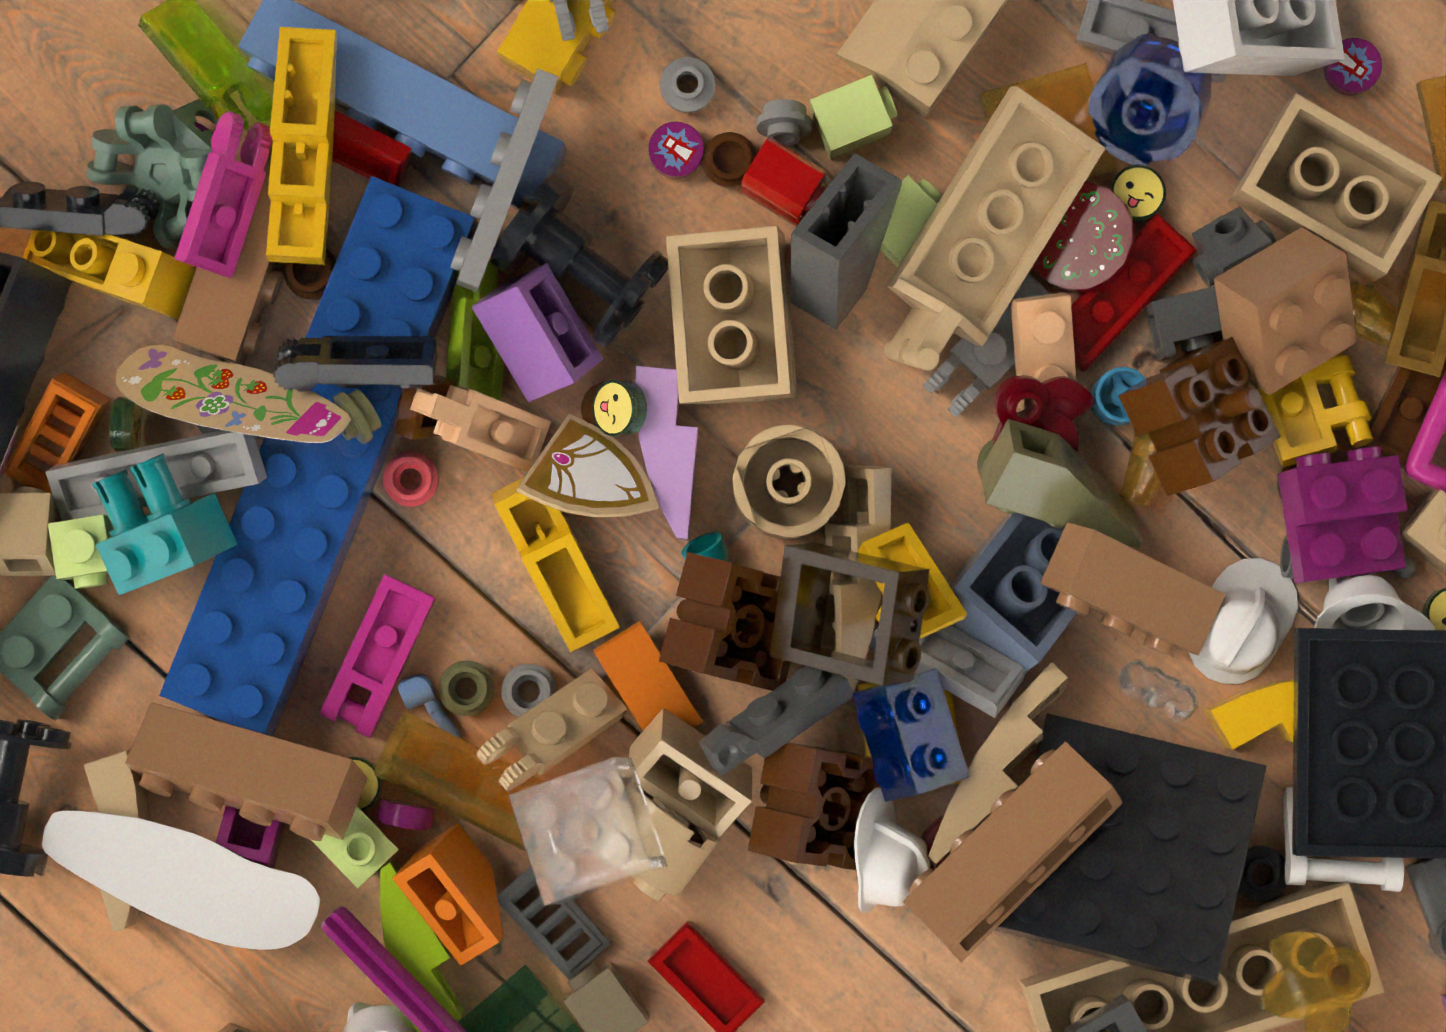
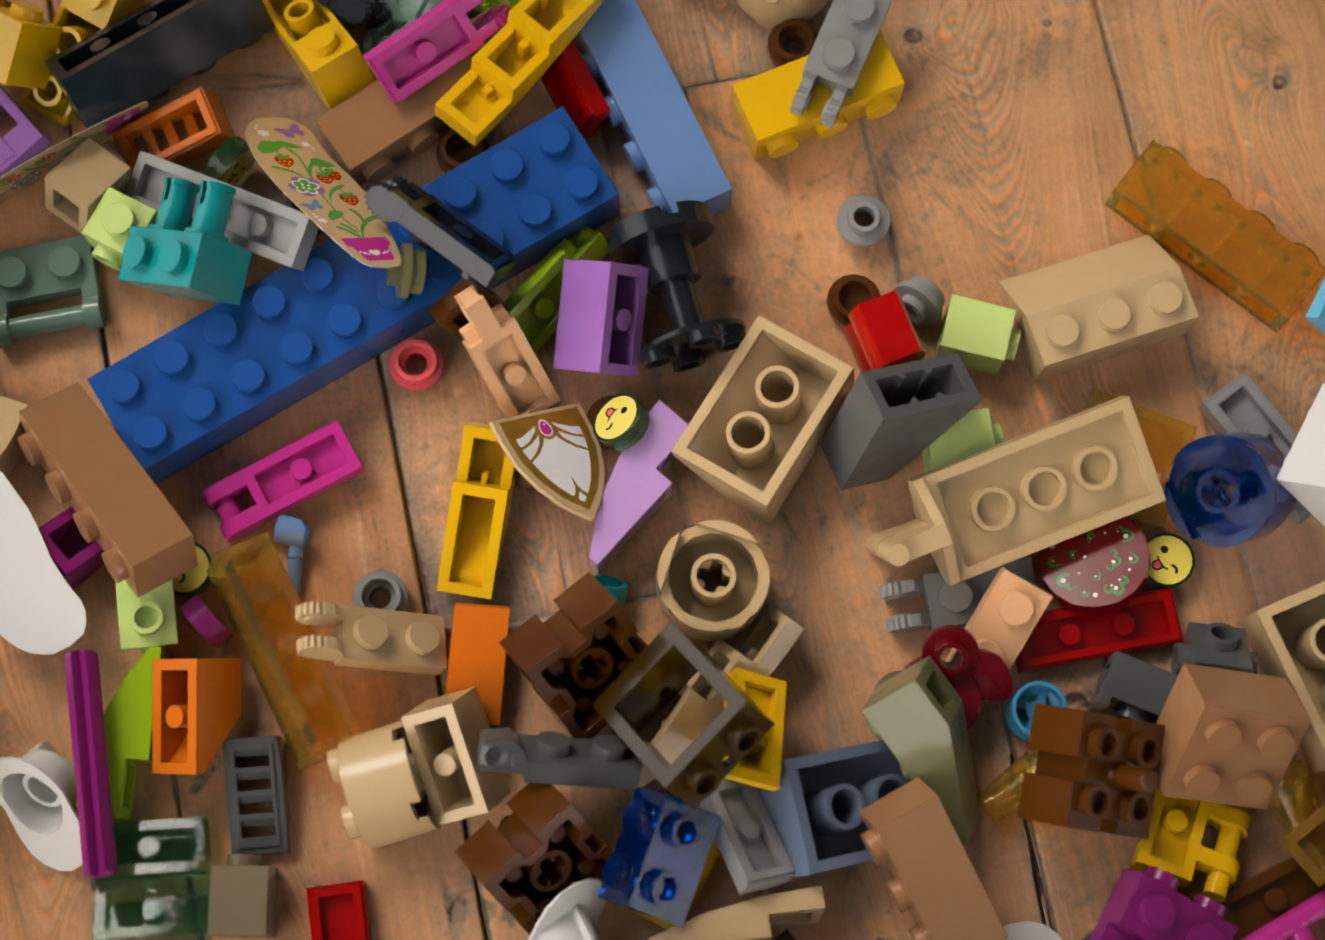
camera: 30 degrees right, 10 degrees down
(450, 696) = (326, 543): olive plate -> none
(511, 157) = (681, 167): light grey plate -> none
(587, 830) = (334, 730): clear brick -> none
(676, 150) = (816, 264): magenta tile -> none

